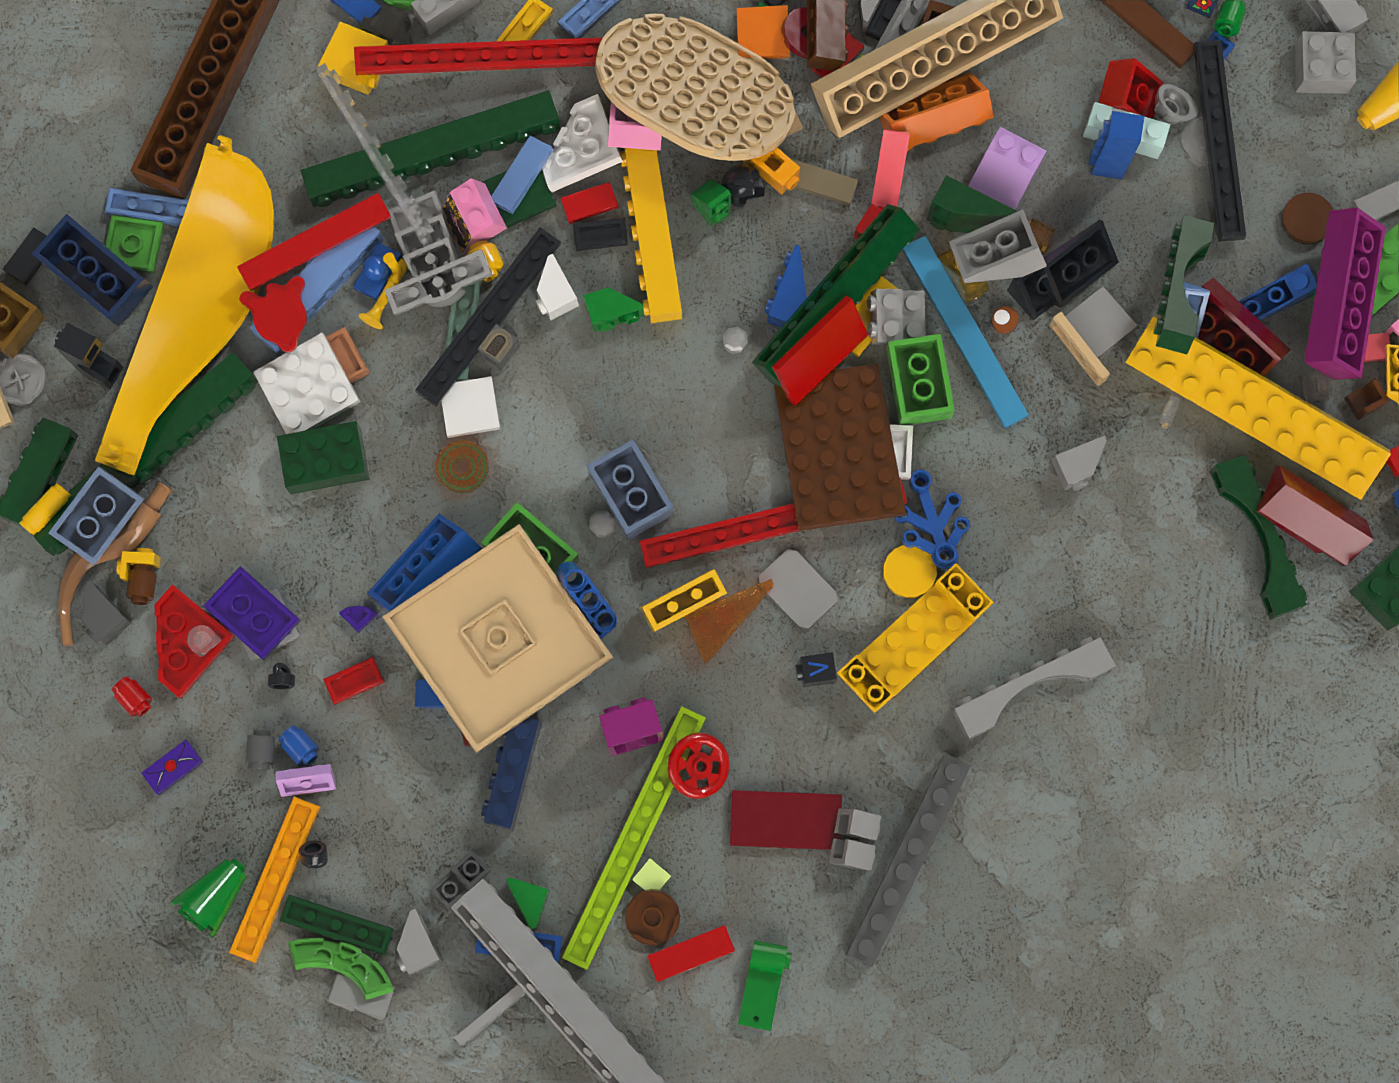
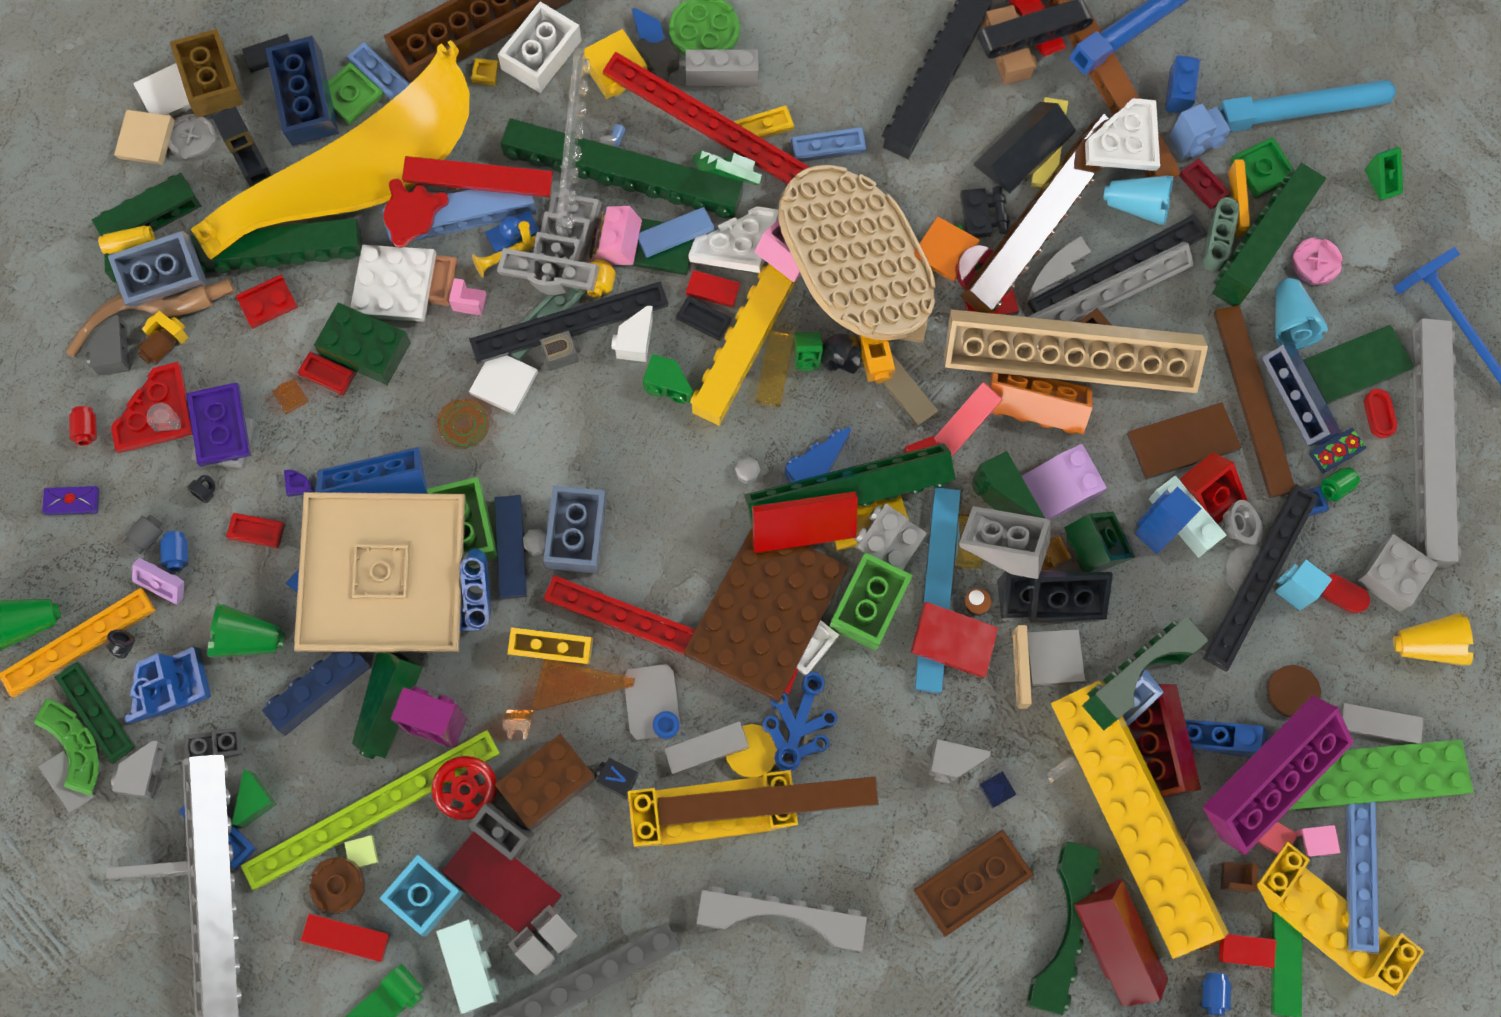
camera: 30 degrees right, 5 degrees down
(206, 479) = (266, 301): none -> red plate
(242, 141) = (485, 72): none -> yellow tile
(276, 87) = (539, 47): none -> white brick
(293, 546) = (290, 396): none -> clear orange tile
(309, 505) = (326, 373): none -> red tile
(382, 858) = (167, 684): none -> blue slope
(383, 357) = (466, 299): none -> bright pink panel
(403, 126) = (614, 138): none -> arm
(415, 772) = (242, 634): none -> green cone
(526, 84) = (731, 167): none -> slope
(580, 742) = (388, 677): none -> dark green slope
(584, 542) = (510, 547): none -> dark blue tile
(693, 237) = (774, 369): none -> clear yellow tile
(700, 681) = (517, 720): none -> clear orange tile
(731, 874) = (421, 895): none -> medium azure brick
(756, 777) = (501, 830): none -> dark grey brick
(761, 713) = (545, 782): none -> reddish brown brick
(809, 903) = (468, 966): none -> light aqua brick
(824, 599) = (666, 725): none -> blue tile
(872, 594) = (706, 748): none -> light grey tile
(958, 600) = (768, 801): none -> reddish brown tile
(1009, 364) = (954, 640): none -> red tile
(1069, 201) = (1098, 541): none -> dark green slope
(1078, 66) = (1183, 440): none -> reddish brown tile
(1129, 463) = (997, 789): none -> clear blue tile
(1162, 551) = (973, 883): none -> reddish brown tile
(1258, 124) = (1302, 584): none -> medium azure brick
(1293, 109) = (1346, 595): none -> red tile

